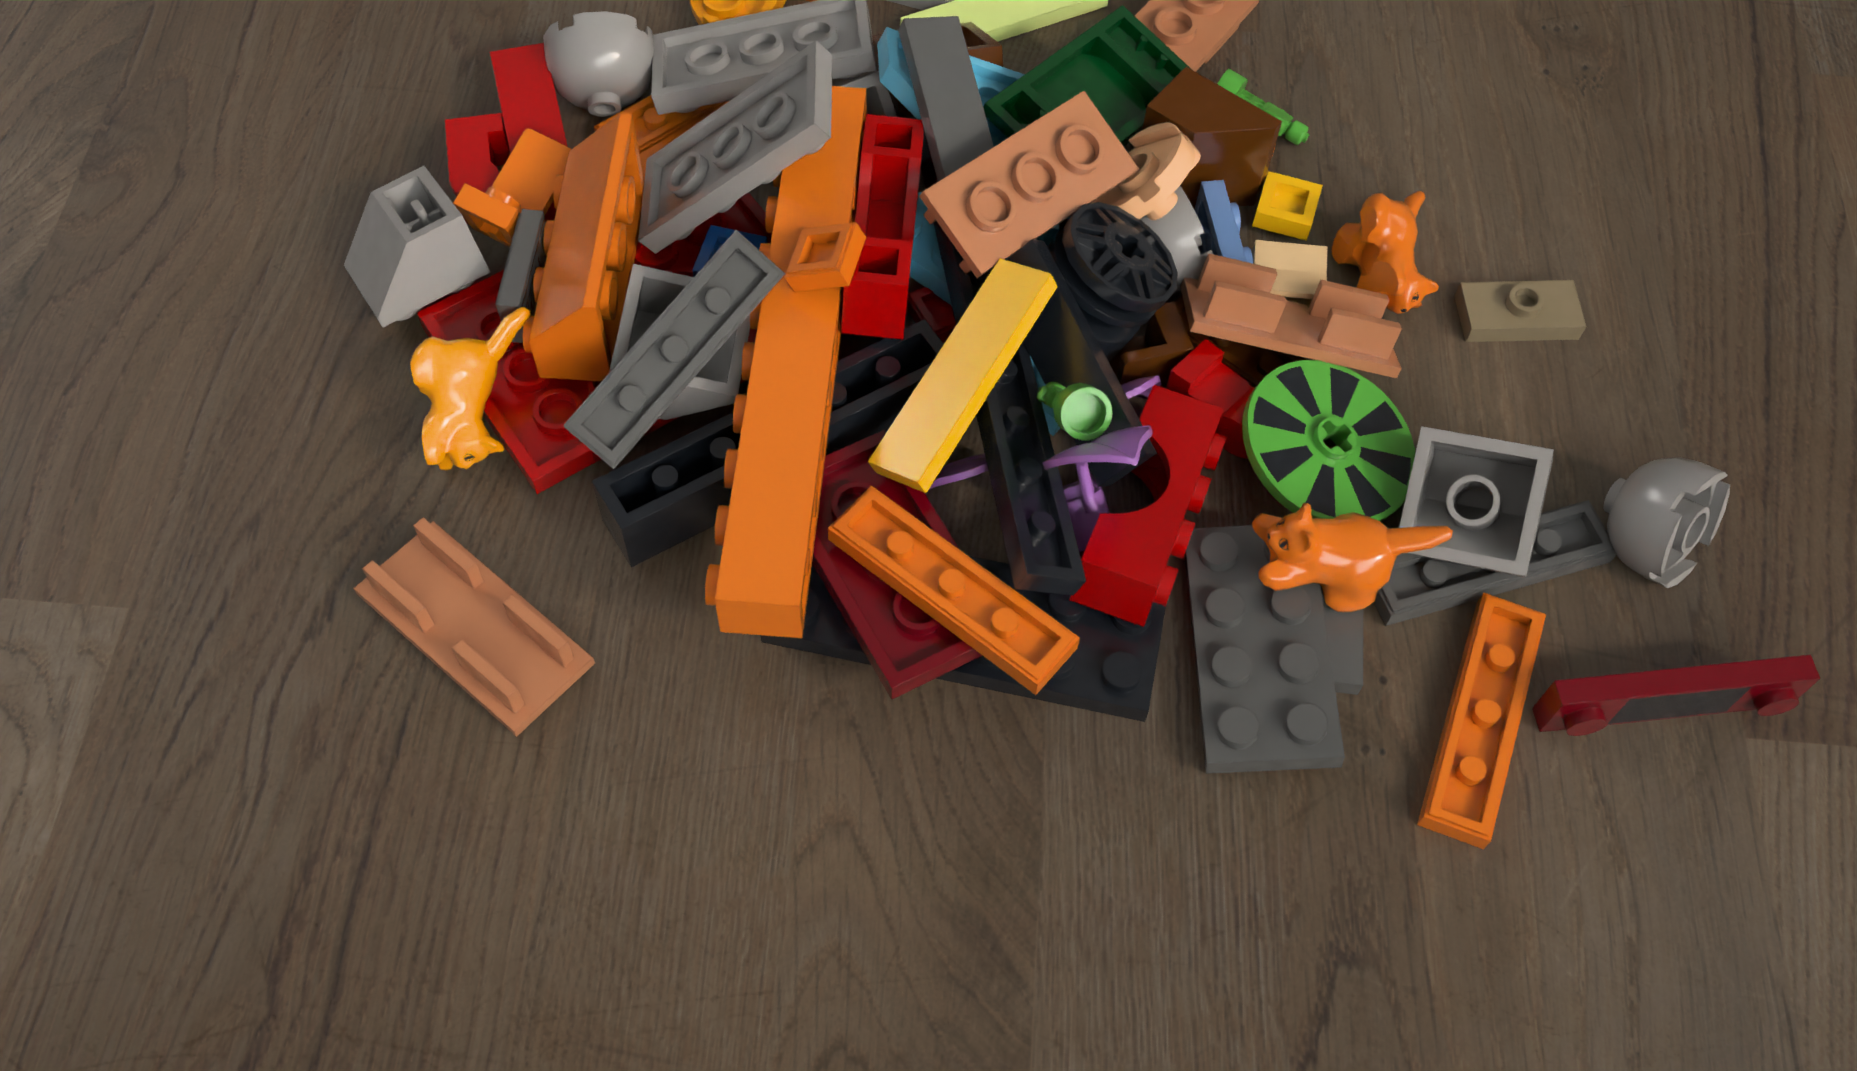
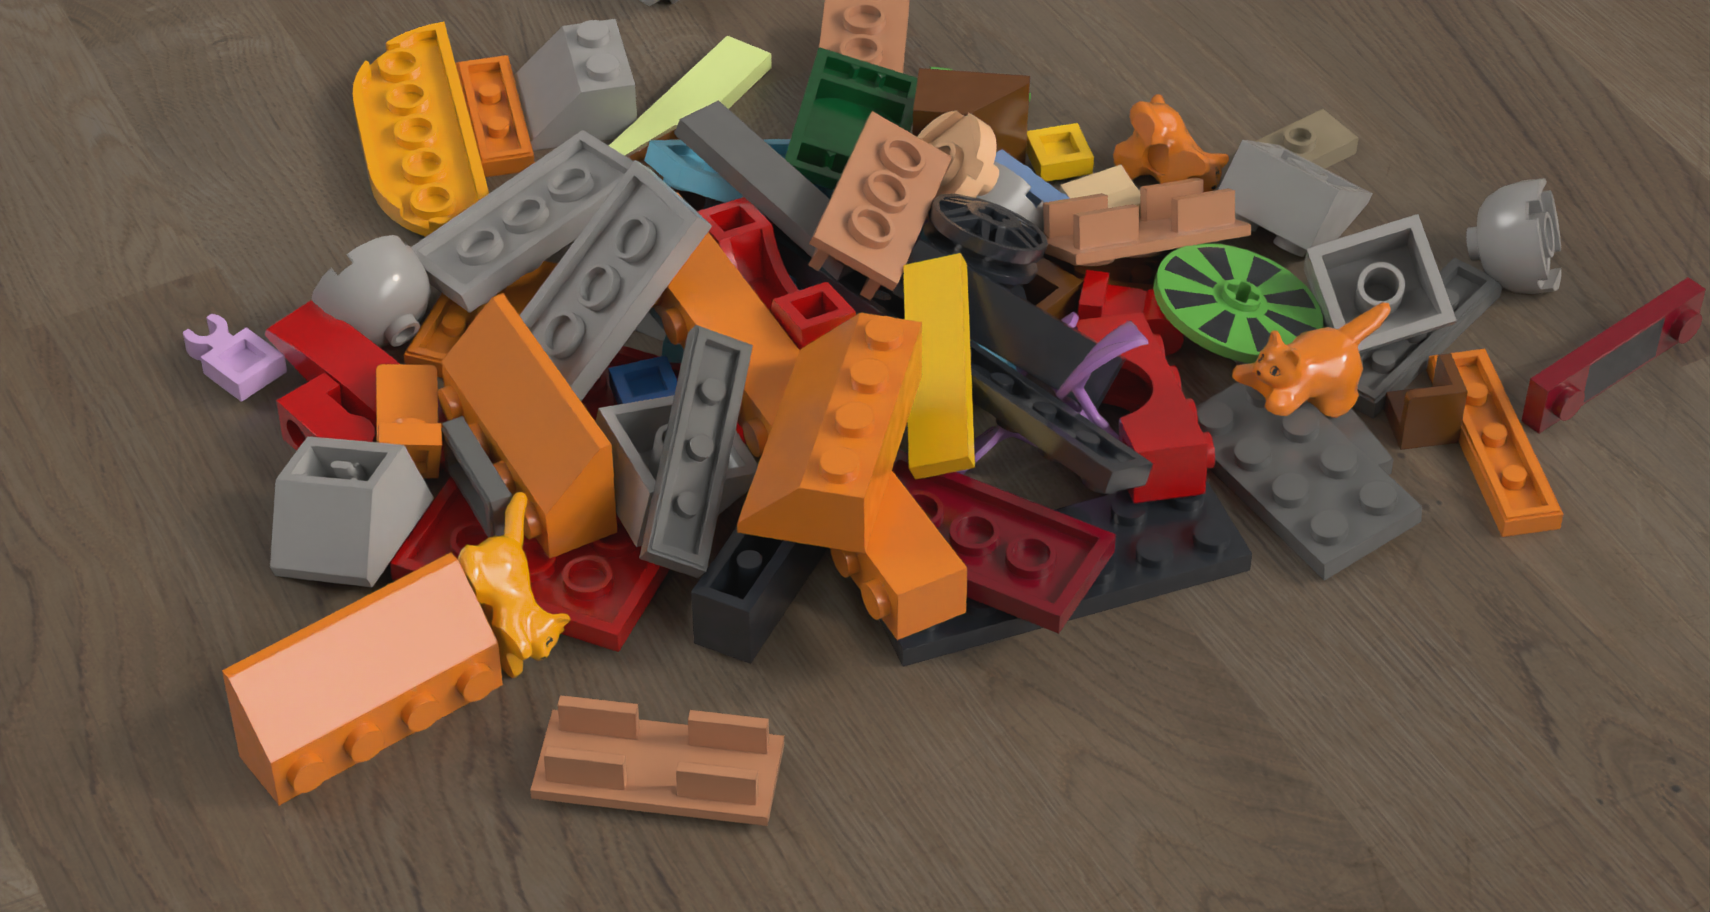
camera: 30 degrees left, 15 degrees down
(287, 411) = (362, 679): none -> slope
(465, 66) = (236, 362): none -> lavender plate
(785, 409) = (837, 435): none -> orange slope
(825, 257) = (772, 321): orange tile -> none
(954, 589) = (1053, 524): orange tile -> none
(1078, 409) = (1061, 338): bright green piece -> none
(1436, 652) = (1429, 413): none -> reddish brown panel
(1468, 356) = (1291, 196): none -> light grey slope

